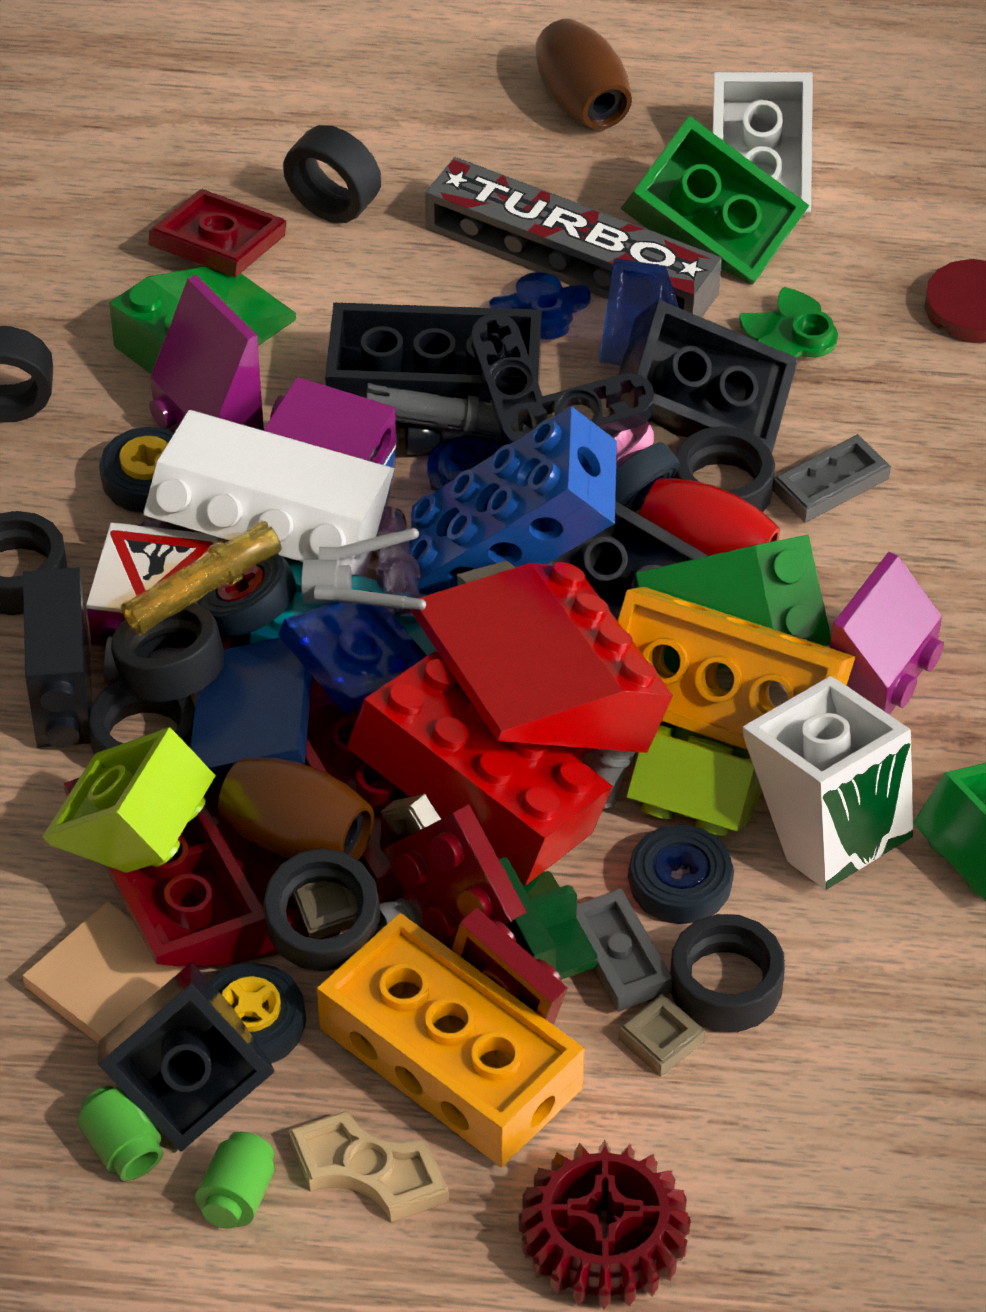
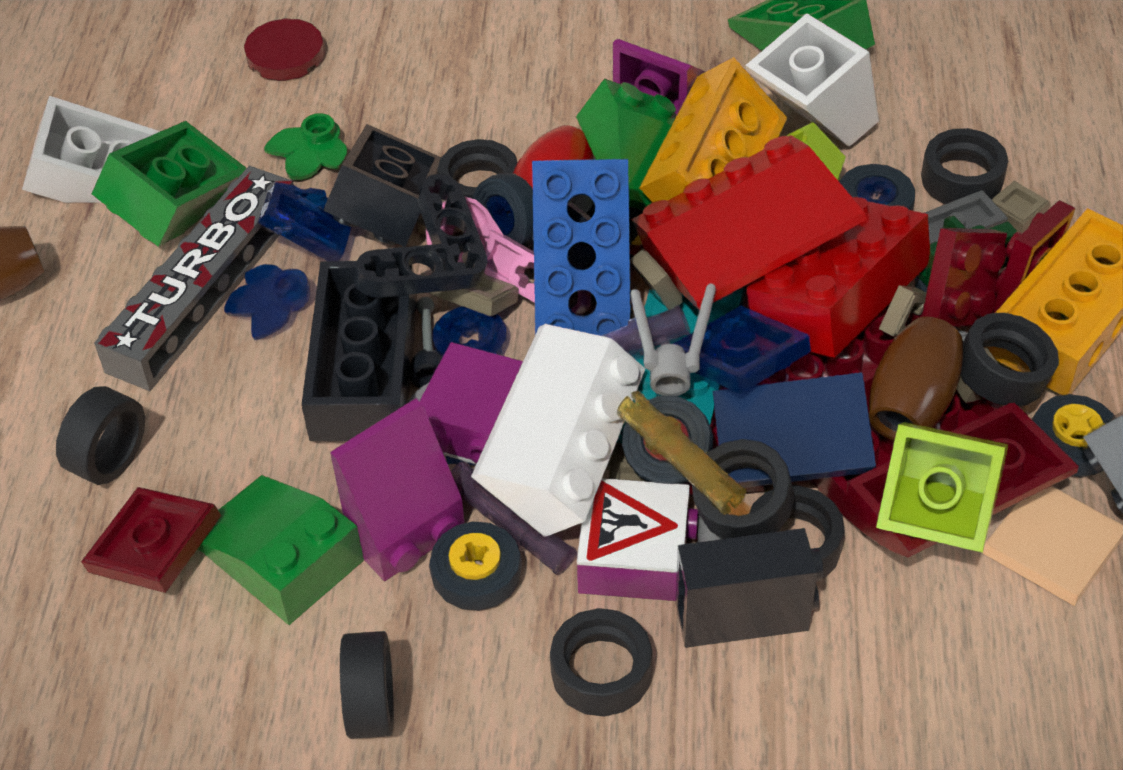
camera: 90 degrees left, 0 degrees up
(425, 409) = (429, 322): dark grey pin -> none
(831, 478) = (477, 117): dark grey plate -> none

